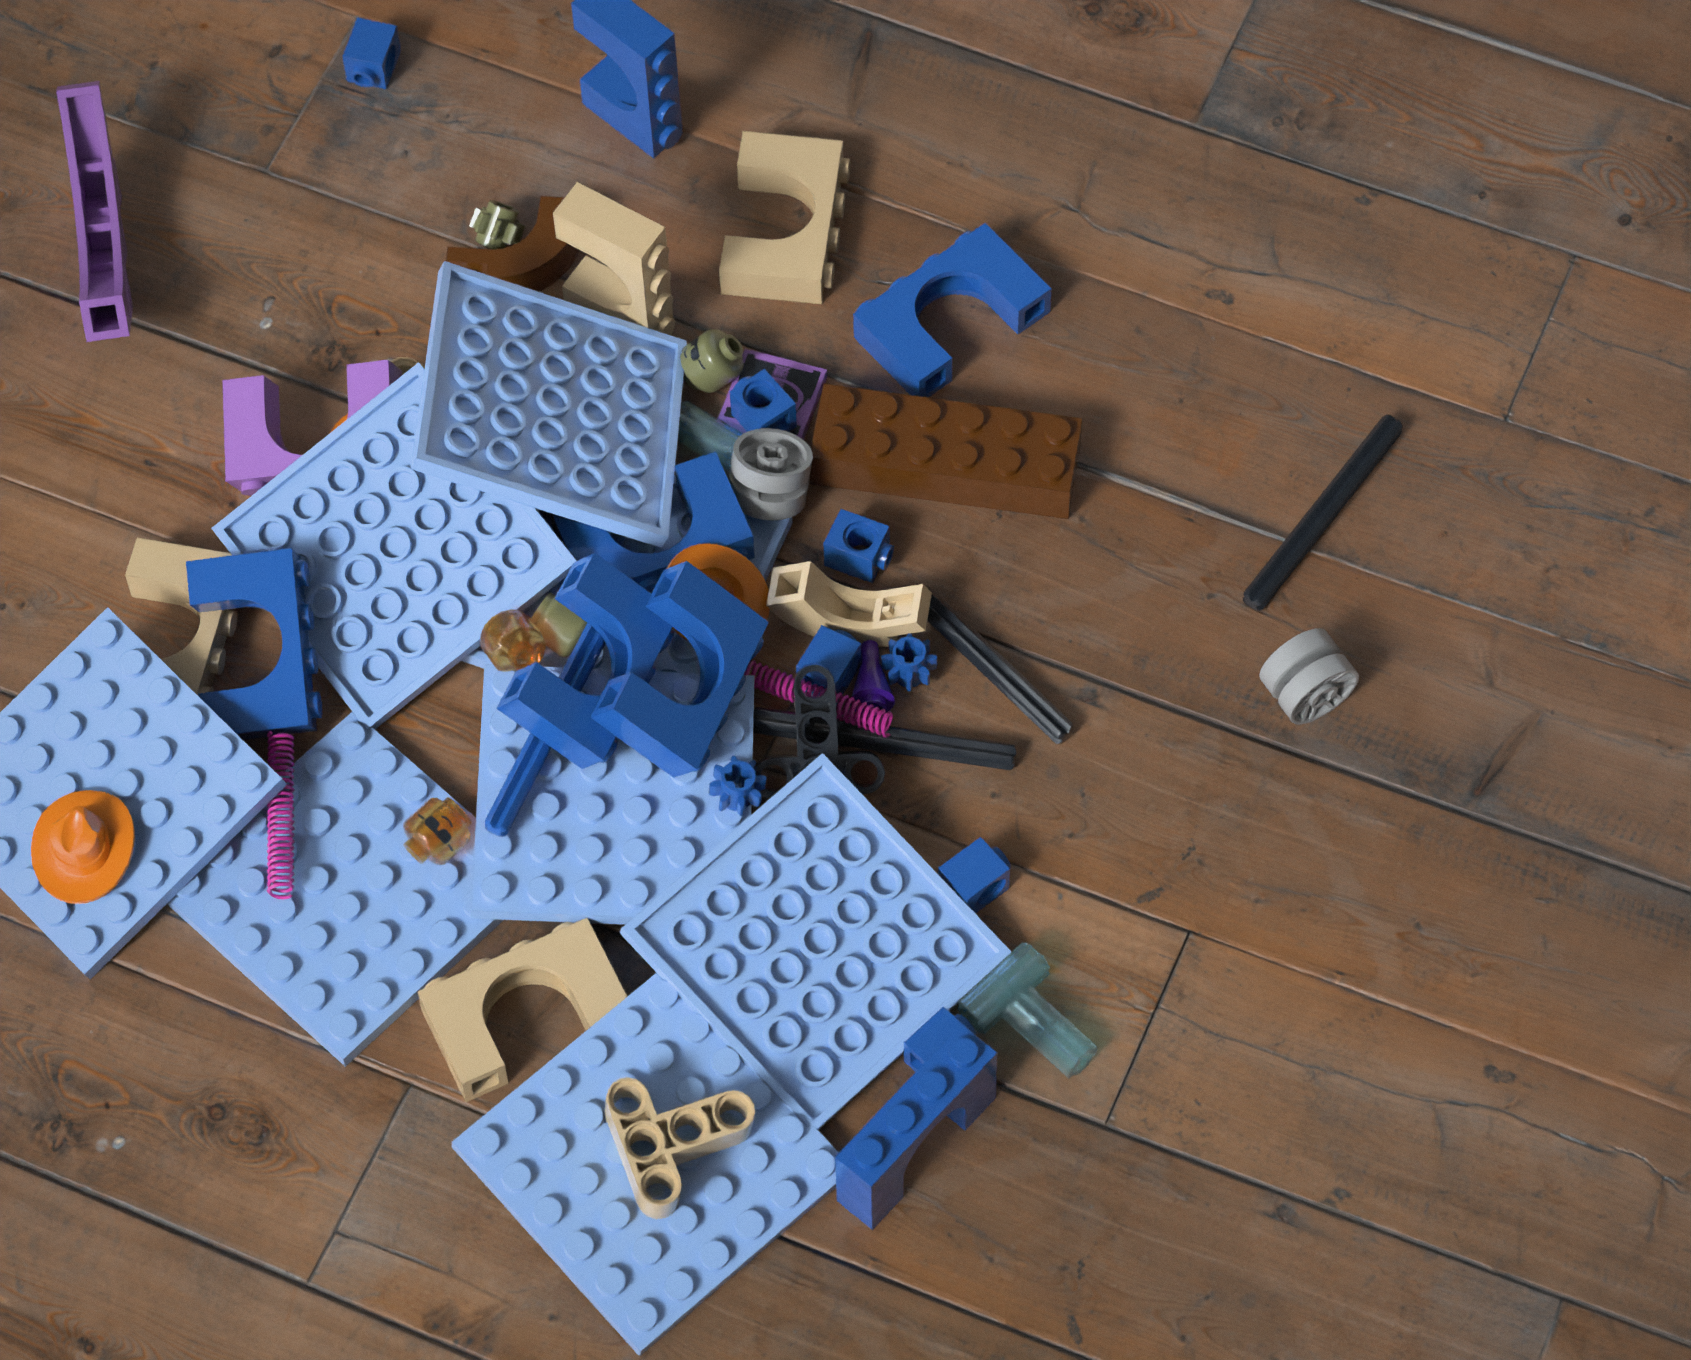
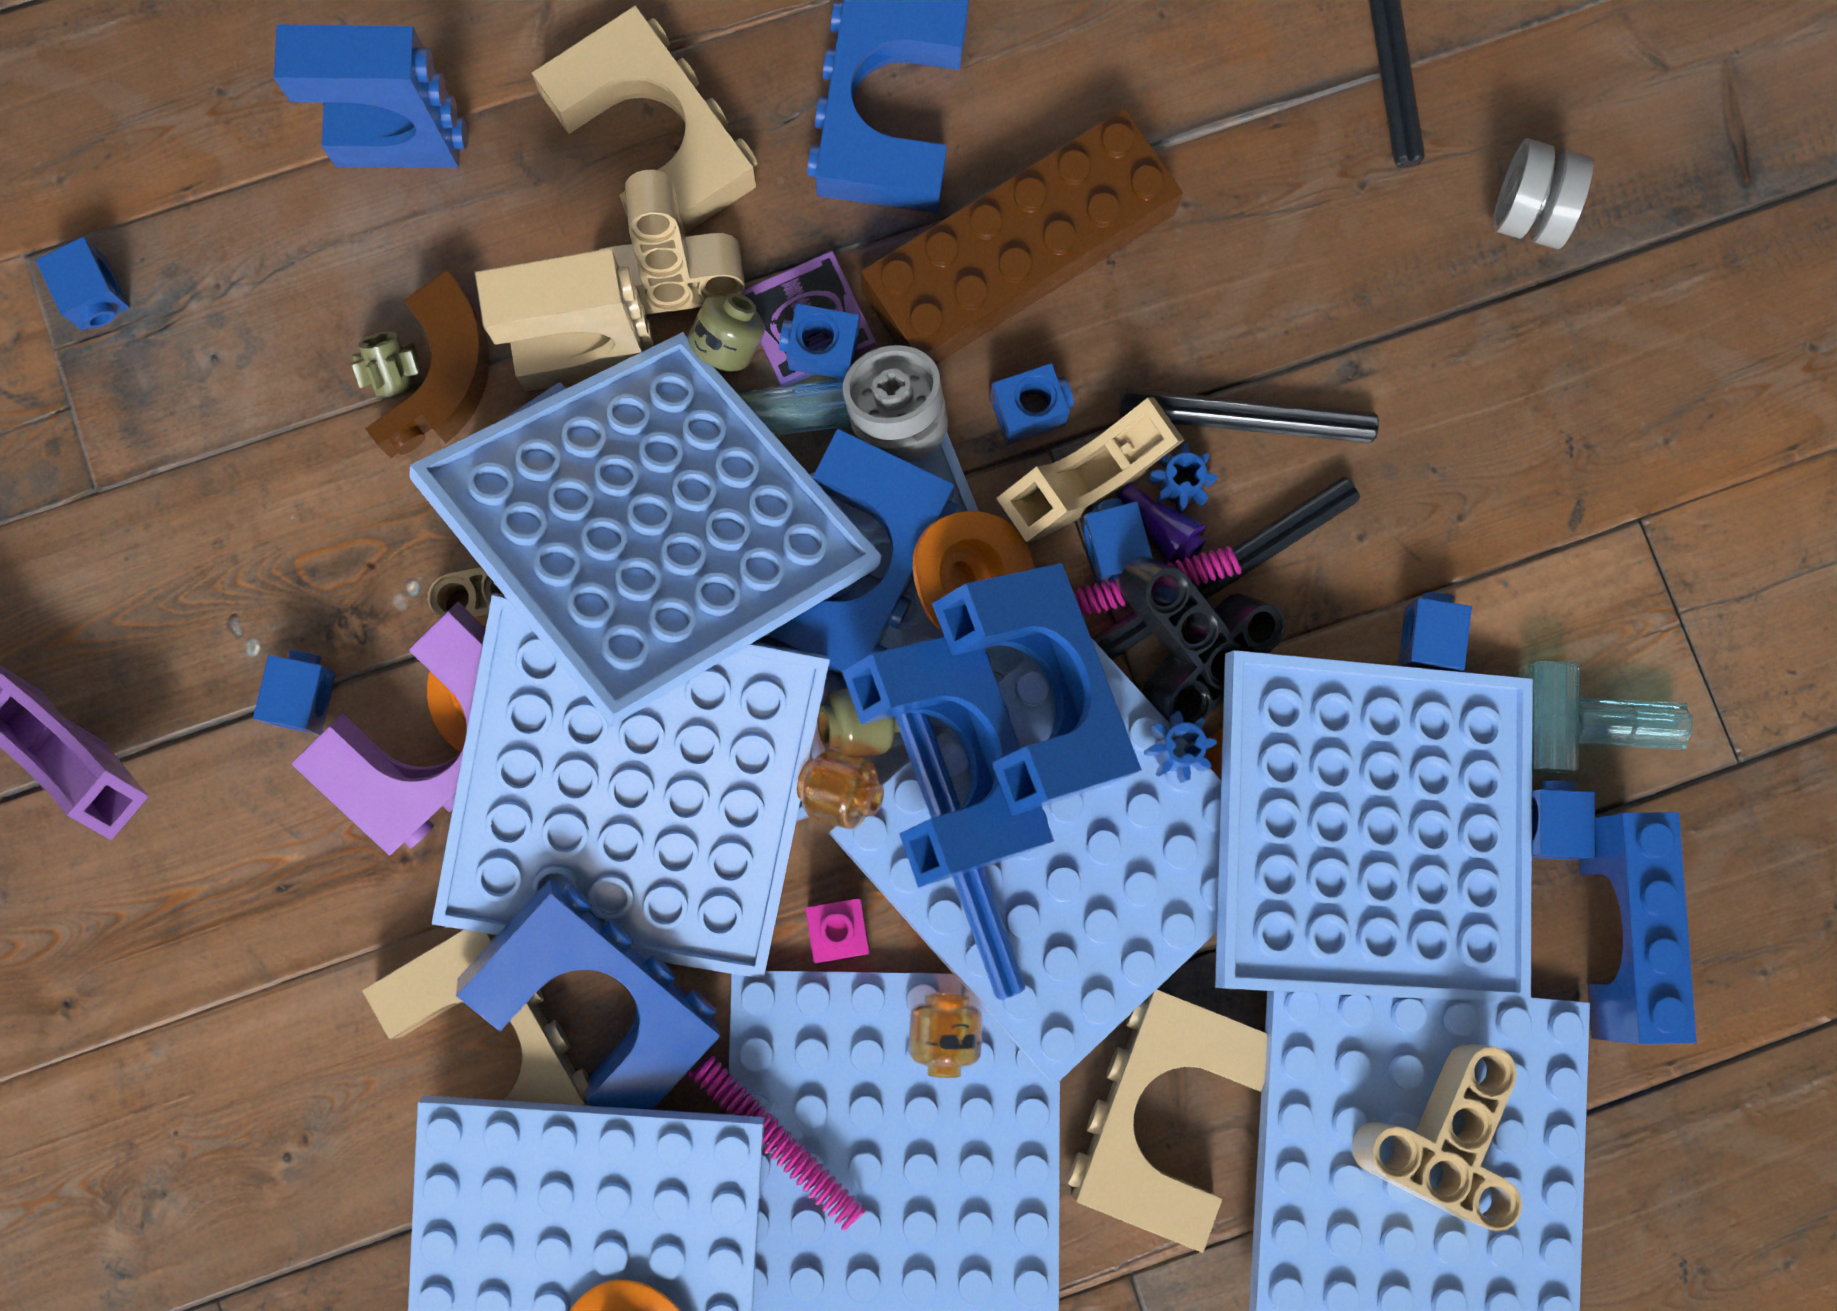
camera: 50 degrees left, 20 degrees up
(264, 354) = (295, 692): none -> blue brick
(435, 737) = (837, 930): none -> dark pink brick
(709, 287) = (663, 263): none -> tan beam

